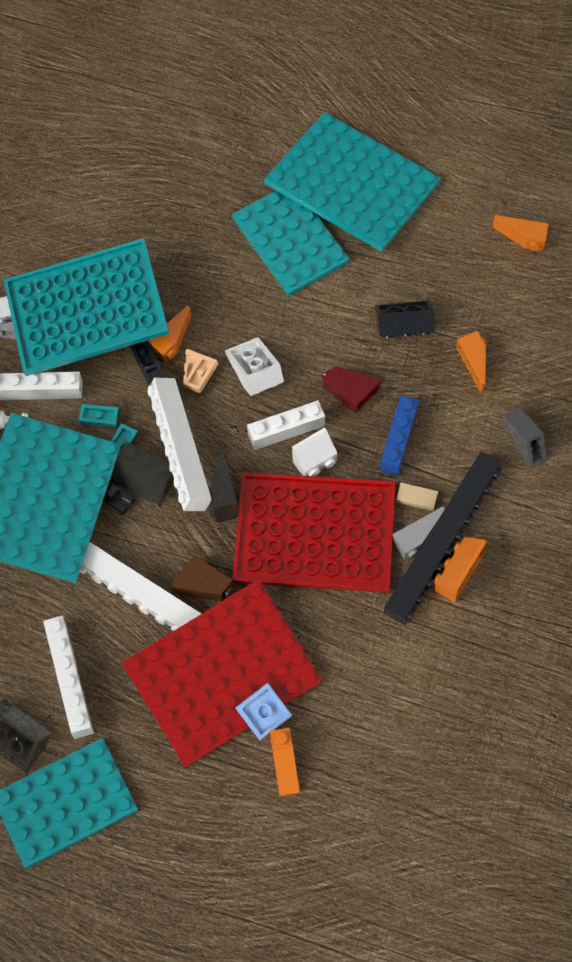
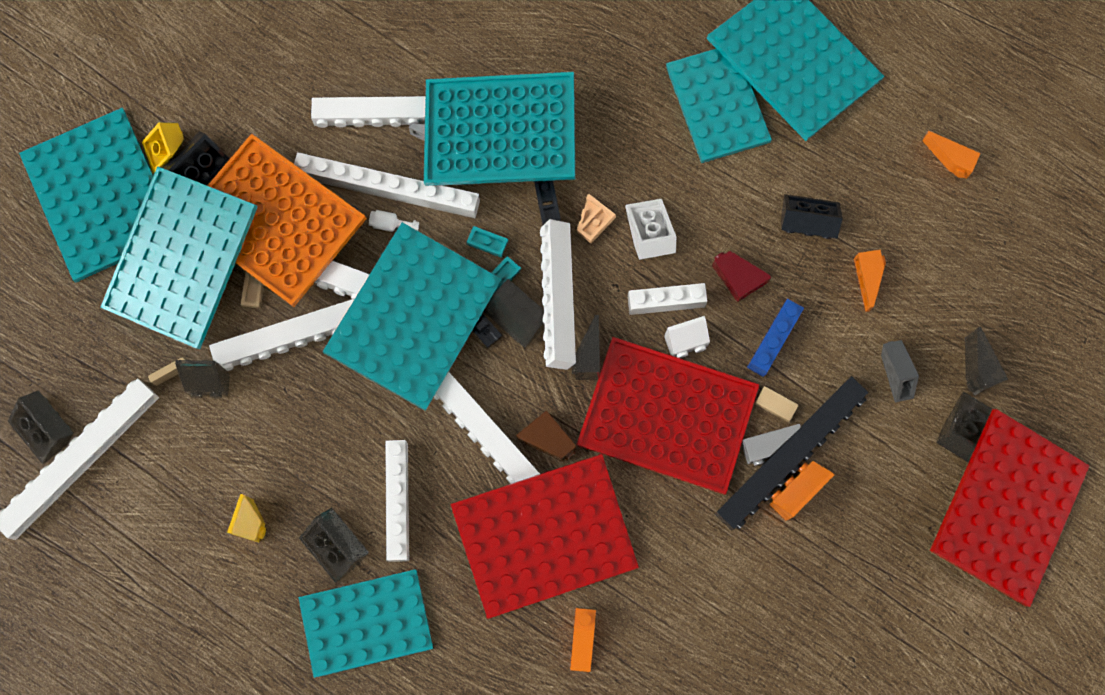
camera: 10 degrees right, 10 degrees up
(168, 345) = (583, 170): orange slope -> none
(263, 711) = (575, 585): light blue tile -> none

